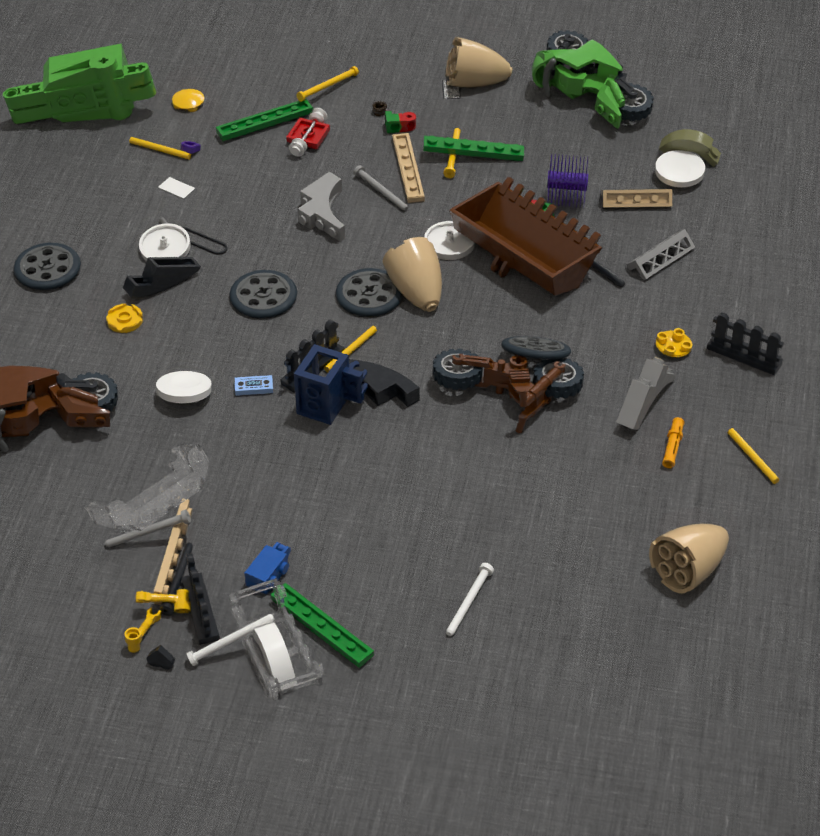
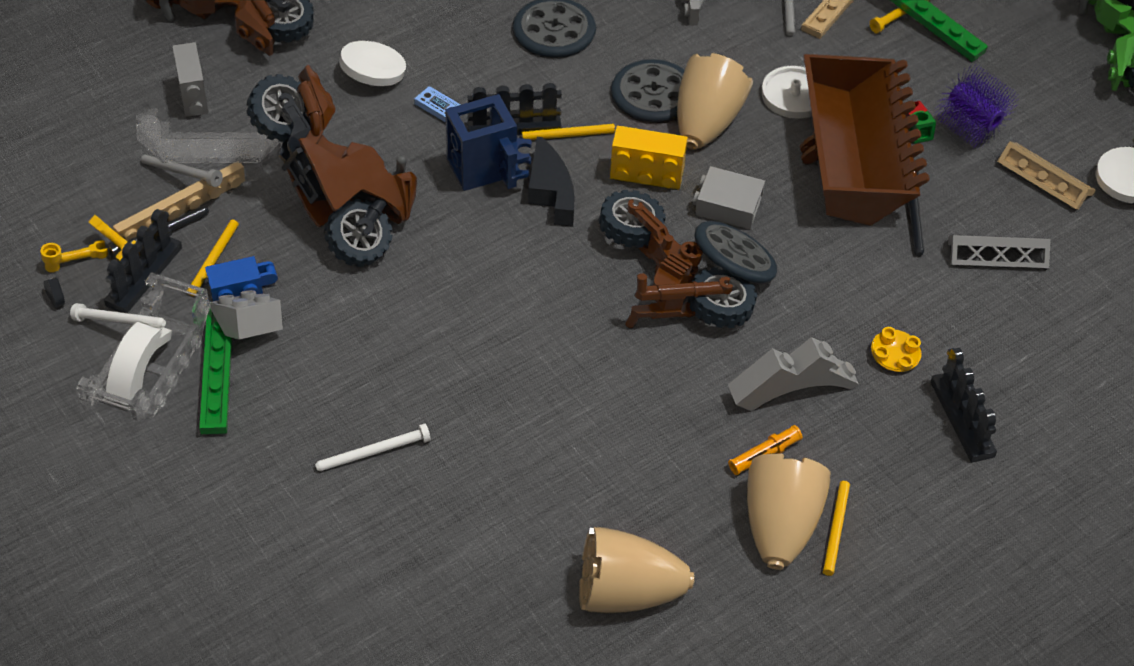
camera: 40 degrees right, 5 degrees up
(83, 473) = (190, 79): none -> light grey brick
(230, 565) = (215, 253): none -> yellow bar
(262, 461) = (330, 177): none -> piece
(307, 579) = (247, 314): none -> light grey slope
(423, 329) = (648, 157): none -> yellow brick
(490, 322) = (729, 197): none -> light grey brick
(723, 460) = (784, 505): none -> tan cylinder

